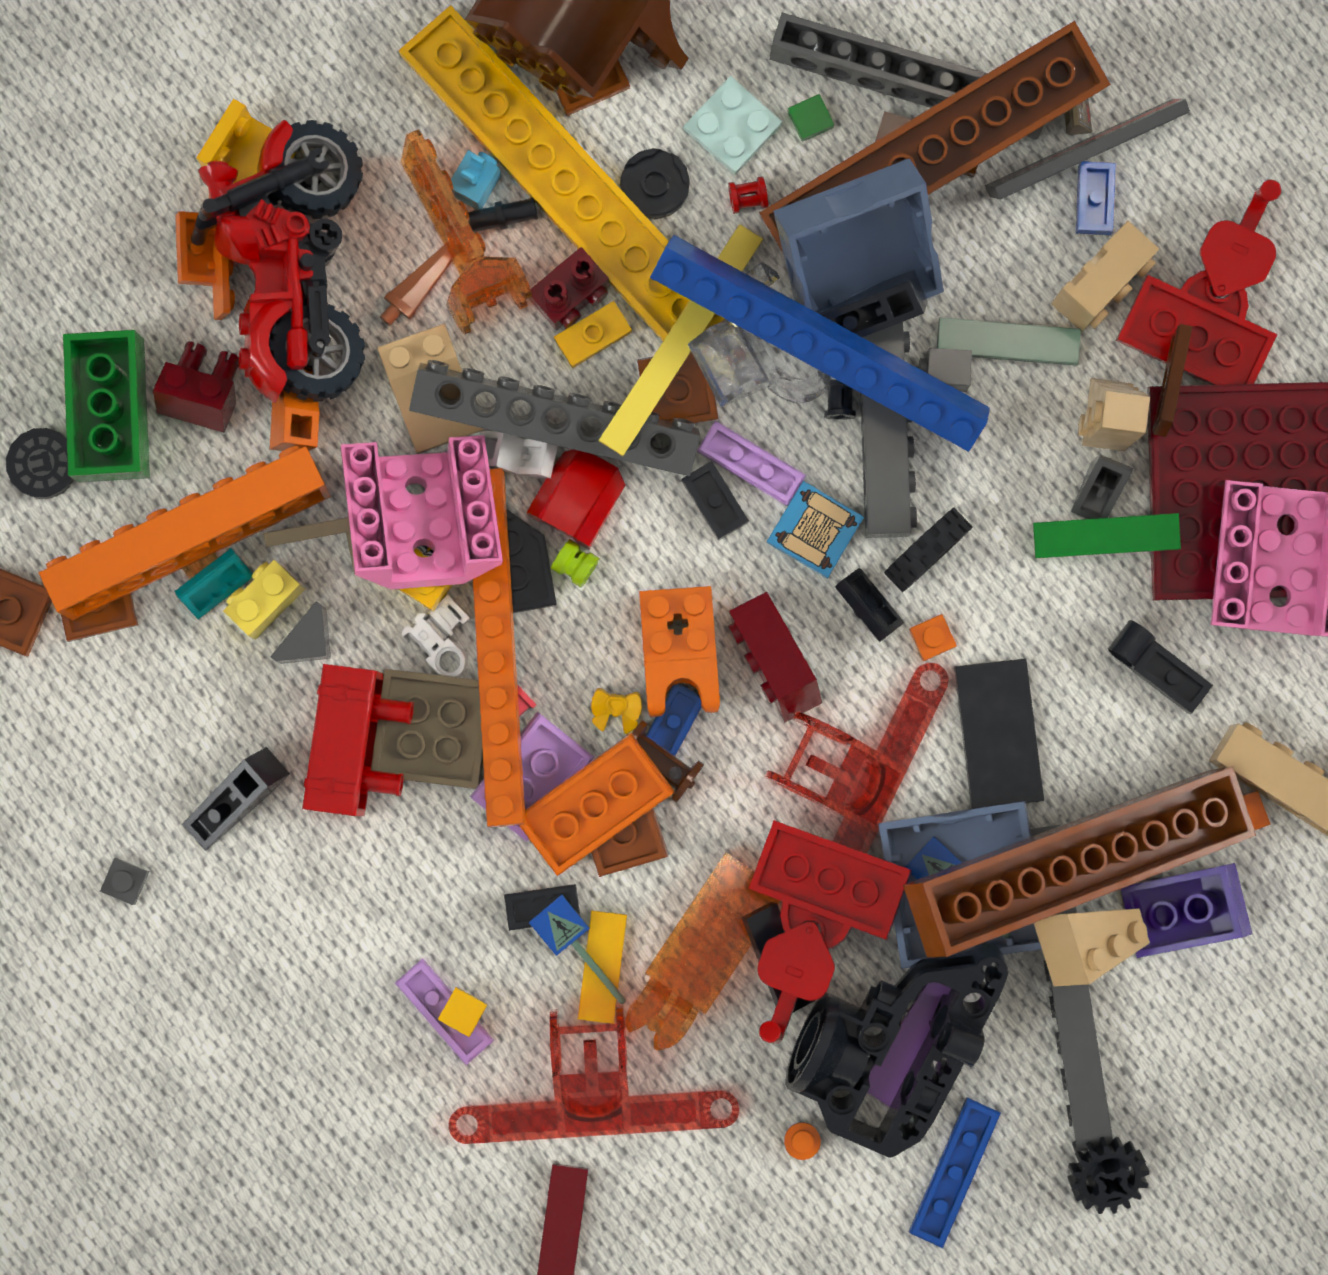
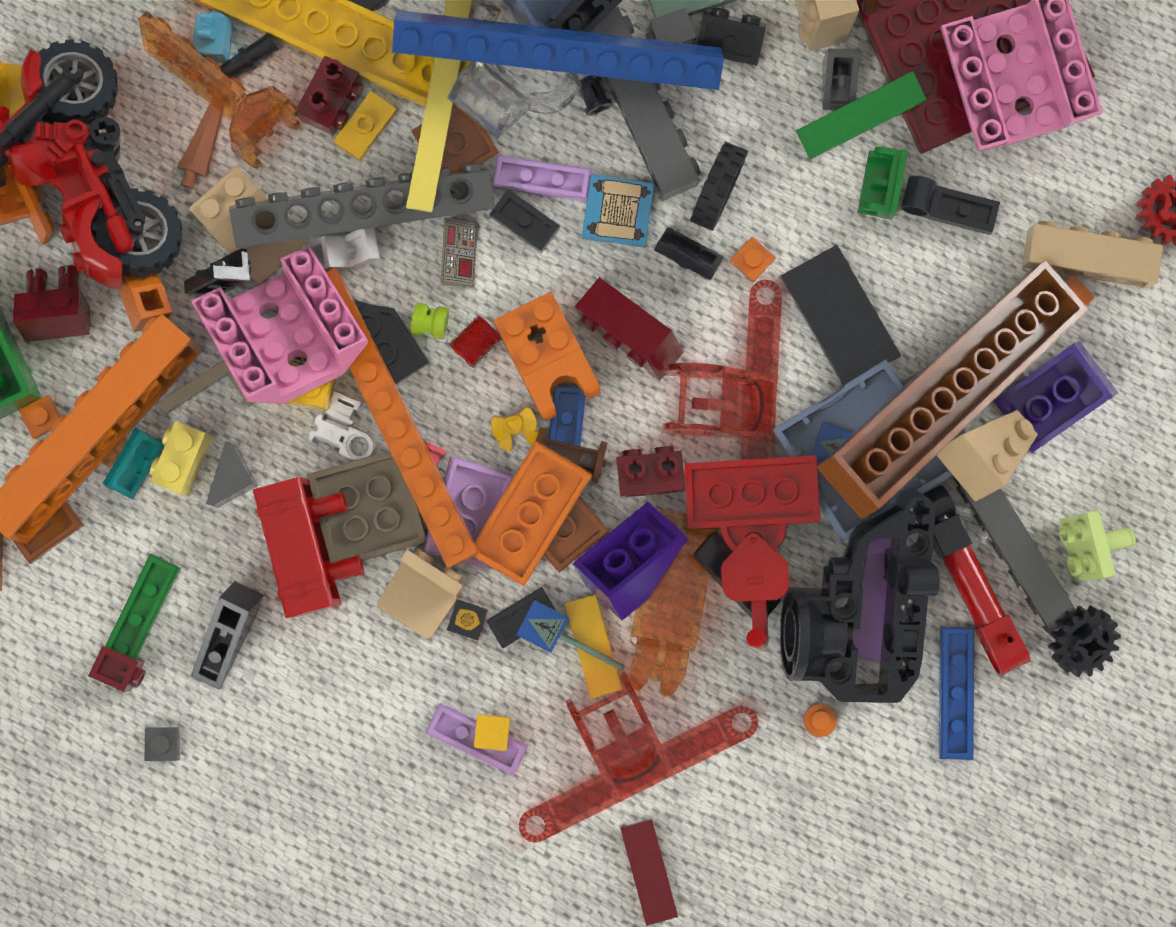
camera: 20 degrees left, 0 degrees up
(111, 787) = (117, 669): none -> dark red bracket
(140, 496) = (40, 416): none -> orange plate
(151, 744) = (143, 606): none -> green tile
(387, 428) = (225, 273): none -> black bracket
(449, 839) = (420, 593): none -> tan bracket
(485, 885) = (467, 619): none -> black tile
(578, 496) = (408, 264): red slope -> none
(612, 603) = (475, 341): none -> red piece
(634, 505) = (459, 252): none -> slope
(677, 896) = (631, 560): none -> dark purple slope
(735, 814) = (650, 473): none -> dark red brick
(1010, 398) = (737, 37): none -> black bracket
(1020, 1117) = (993, 626): none -> red piece
(1100, 614) = (882, 182): none -> green hinge
(1155, 1080) = (1091, 546): none -> yellowish green plate

